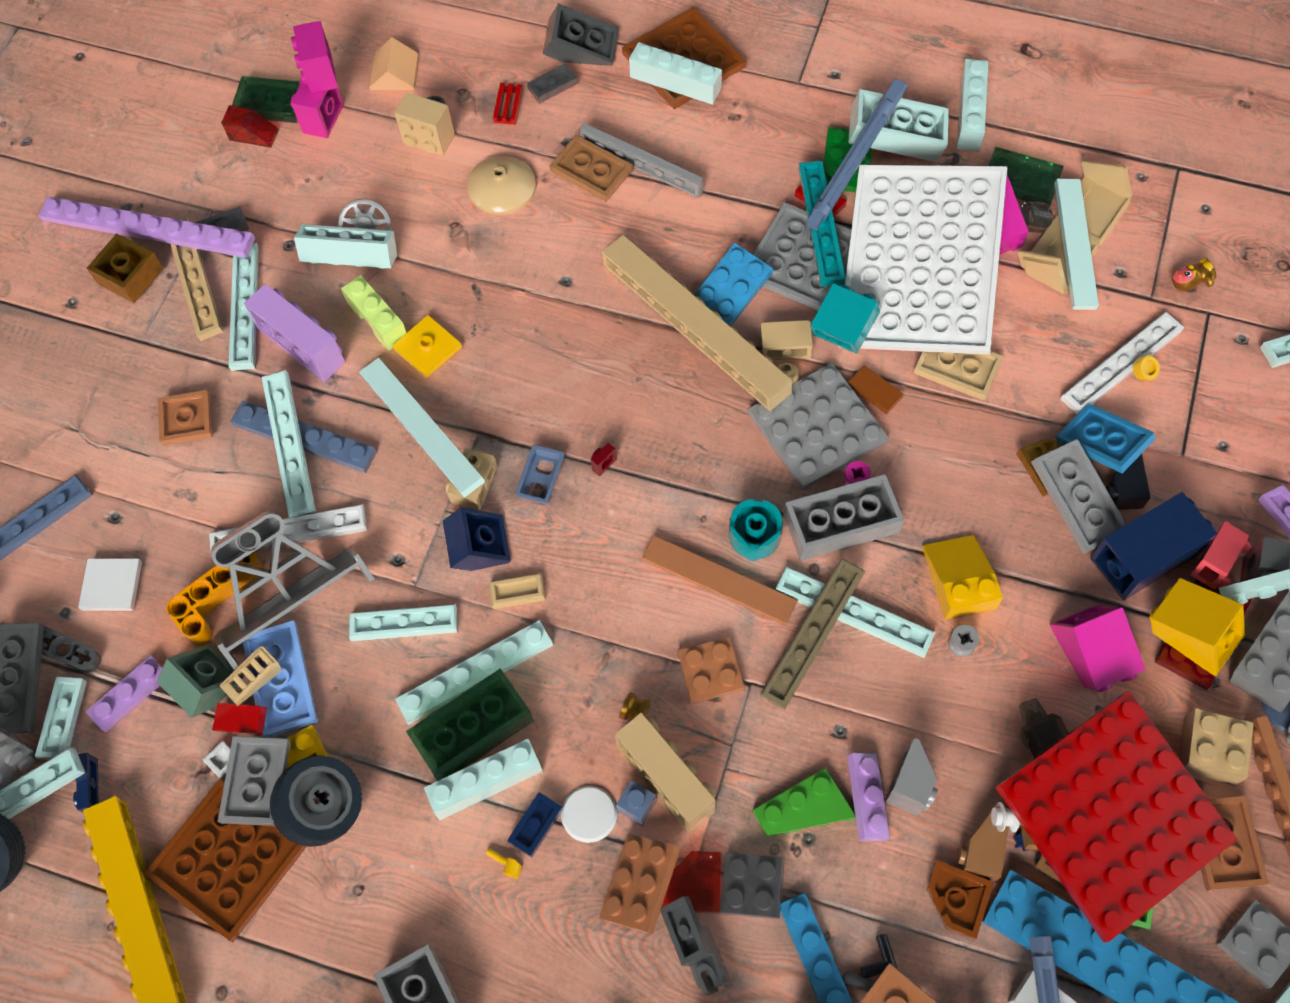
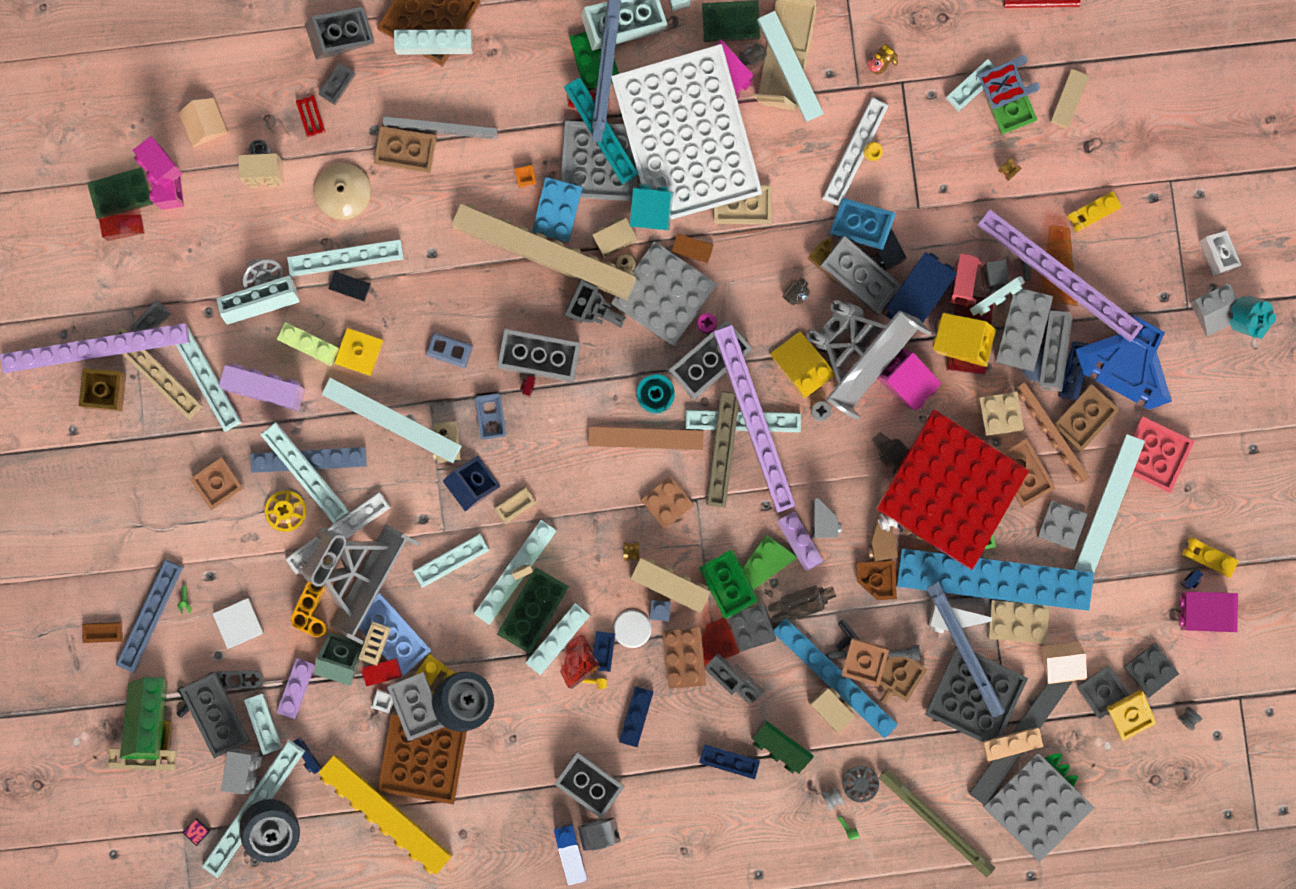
camera: 30 degrees left, 20 degrees up
(62, 534) = (183, 603): none -> bright green hand
(242, 479) = (285, 511): none -> yellow wheel
(455, 276) = (349, 286): none -> black tile
(467, 246) = (345, 258): none -> light aqua plate
(480, 667) = (521, 571): none -> tan tile
(496, 823) = (578, 662): none -> clear red plate
(522, 388) = (446, 355): none -> sand blue piece
(536, 938) = (636, 716): none -> dark blue plate
(633, 428) = (539, 355): none -> light grey brick
(712, 241) = (525, 176): none -> orange plate
(721, 399) = (588, 304): none -> dark grey brick
(745, 809) = (729, 584): none -> green plate
(837, 881) = (802, 603): none -> clear smoke hinge
(871, 610) = (754, 418): none -> lavender plate
(987, 483) = (796, 291): none -> clear smoke head
(1060, 586) = (872, 361): none -> light grey piece

